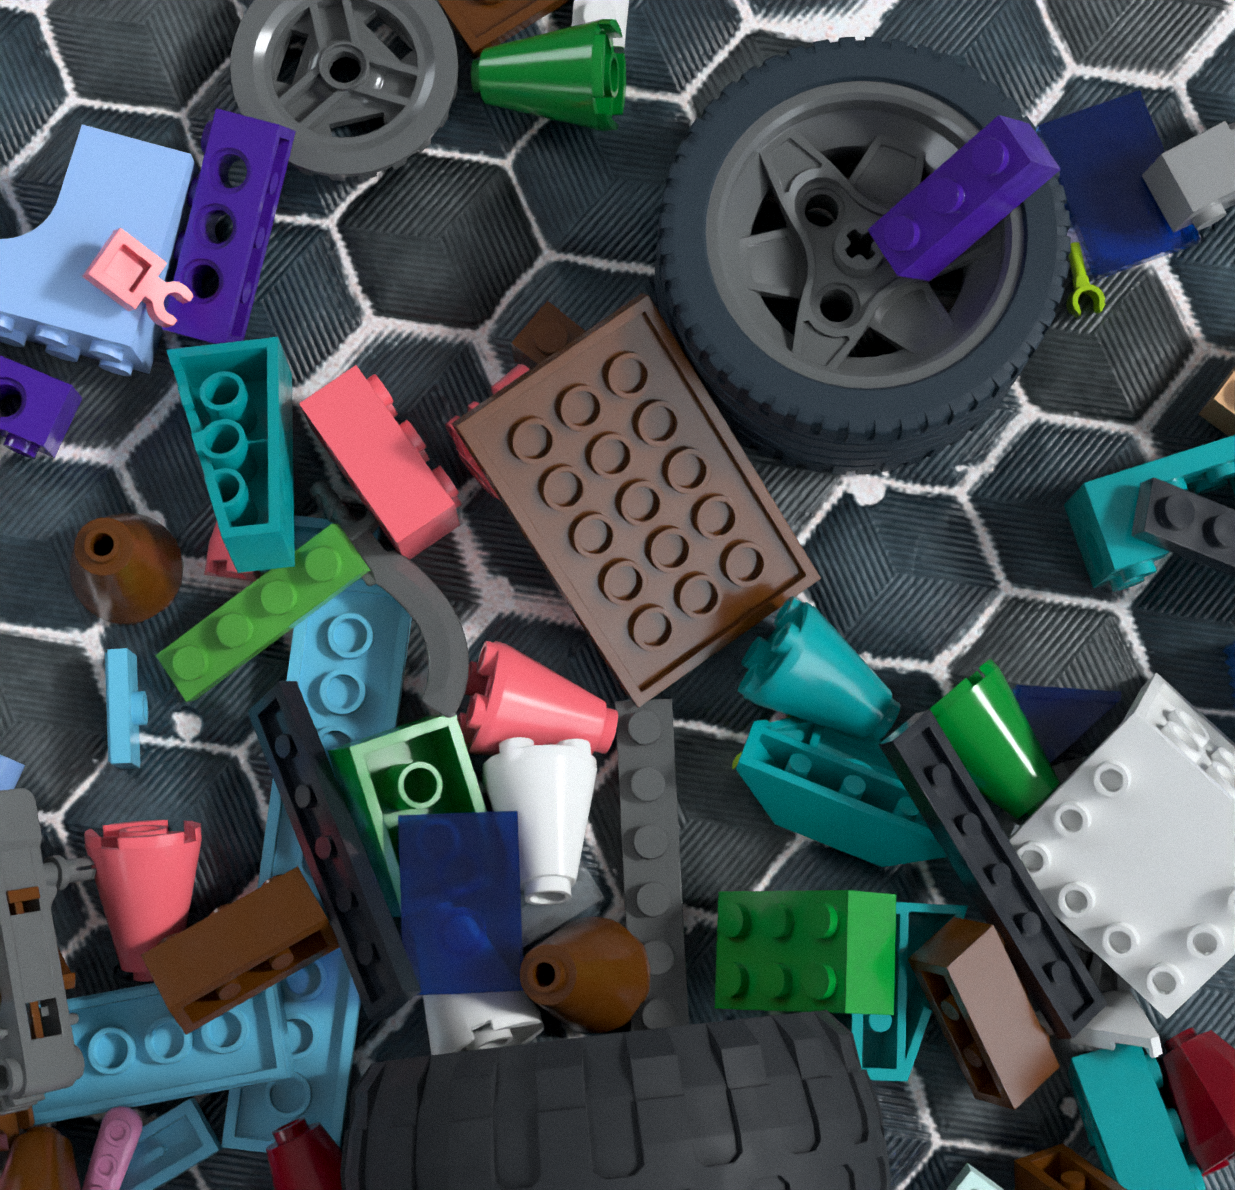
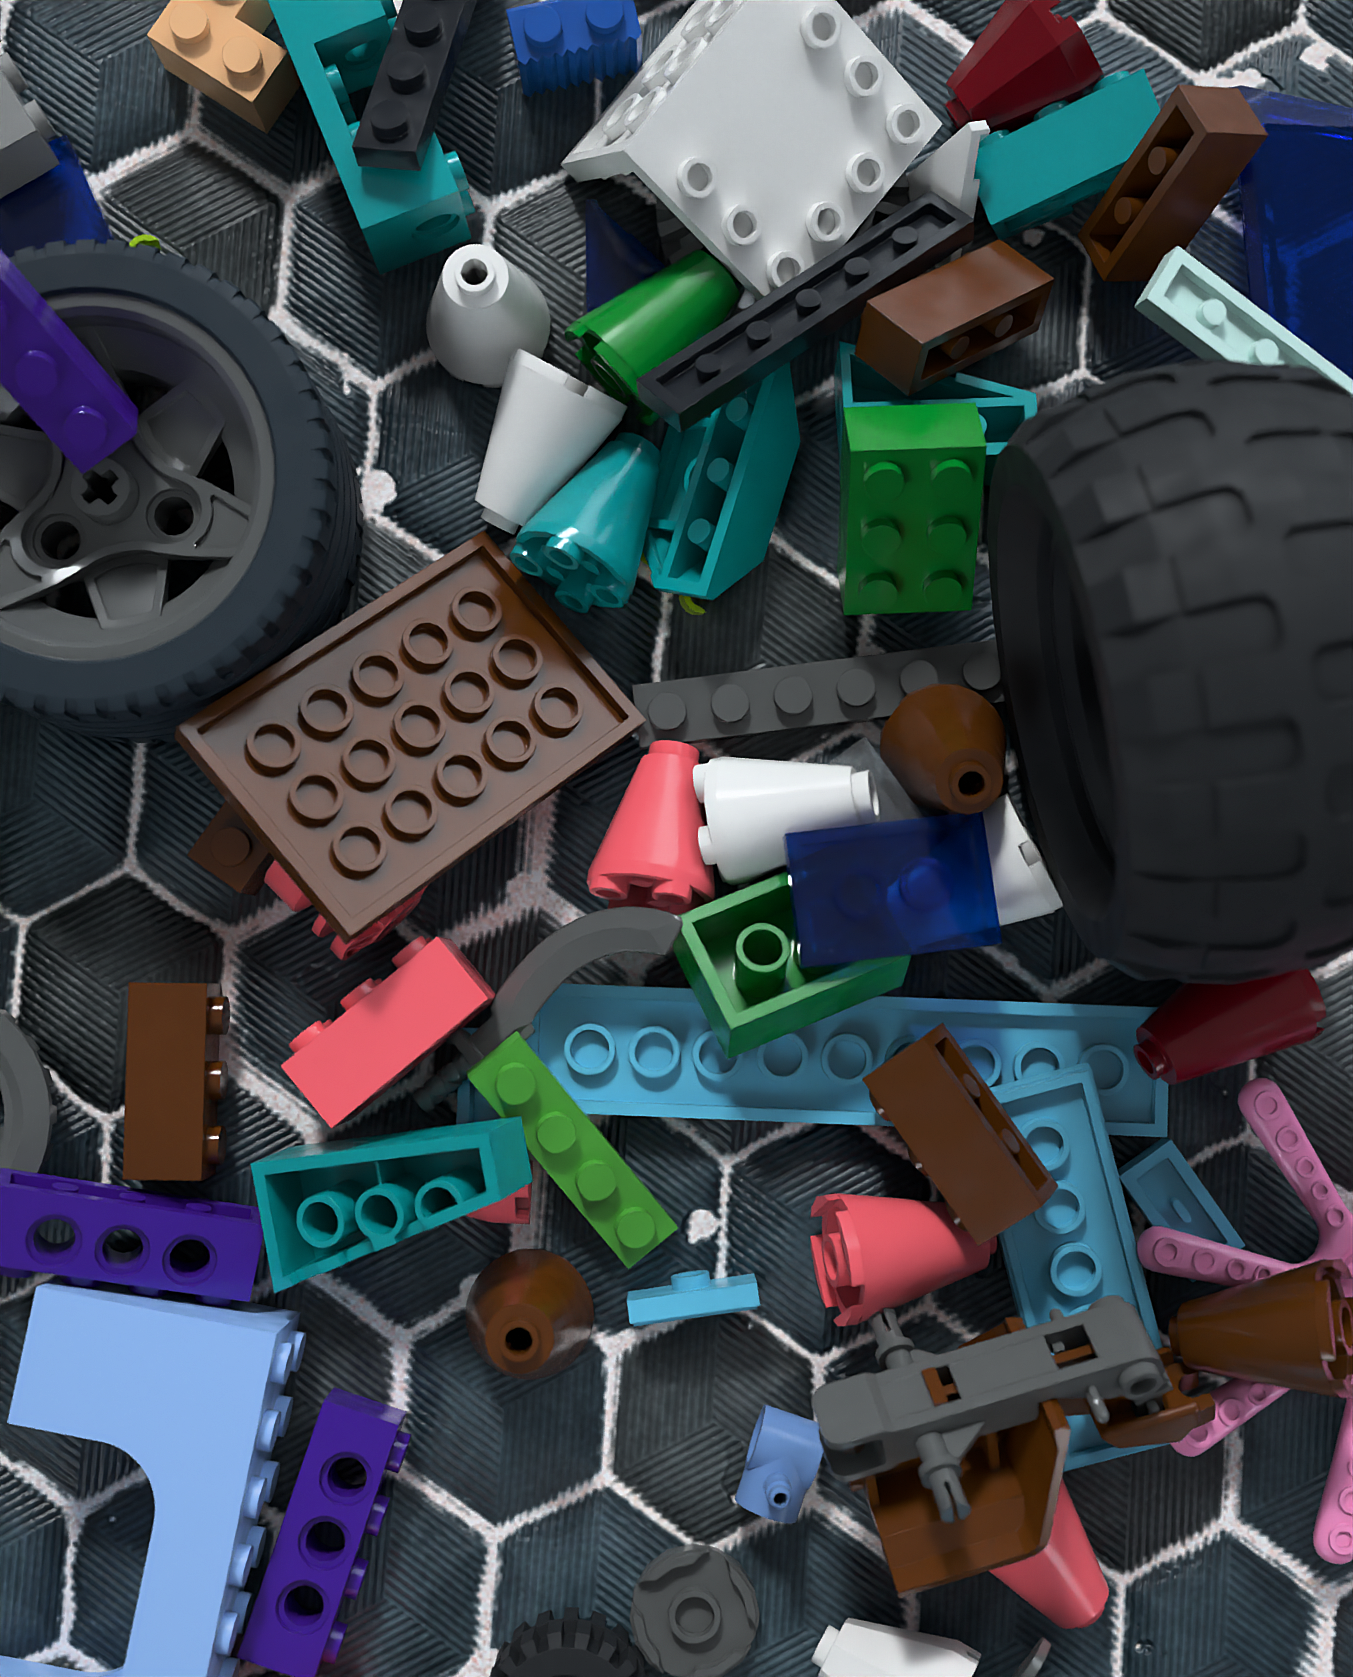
camera: 95 degrees left, 5 degrees up
(130, 275) = (192, 1342): plate -> none
(333, 851) = (843, 1039): black plate -> none
(357, 280) = (174, 1081): none -> reddish brown brick
(900, 633) = (539, 438): none -> white cone
(1011, 597) = (483, 314): none -> white cone

